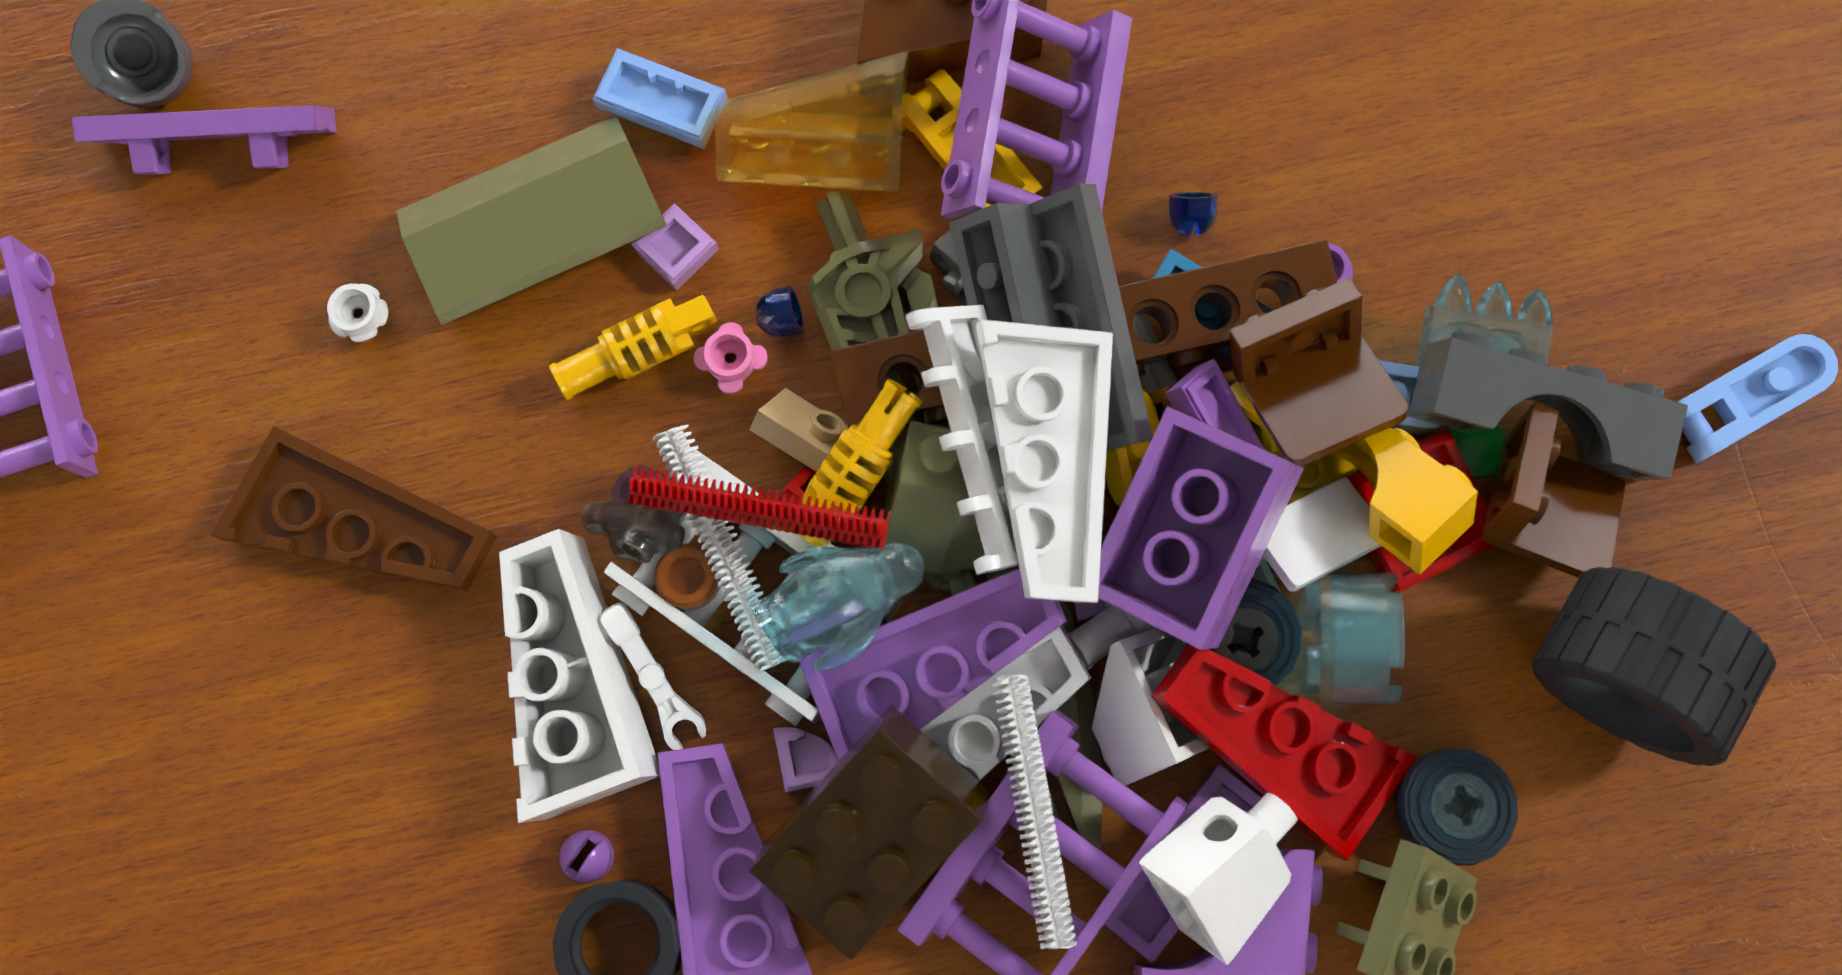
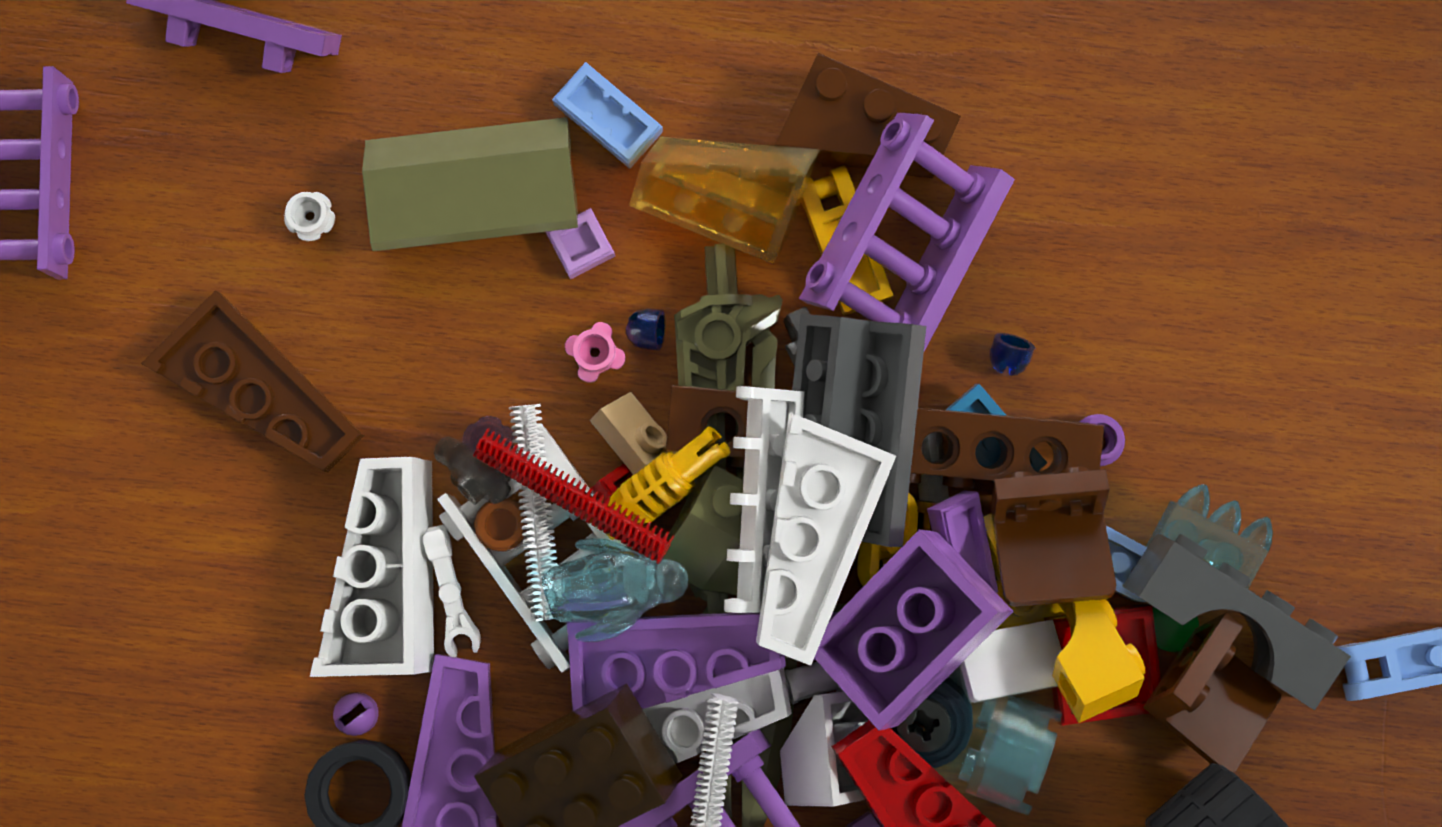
camera: 20 degrees right, 5 degrees up
(635, 345) = (520, 317): yellow hinge -> none
(803, 758) = (547, 694): lavender tile -> none

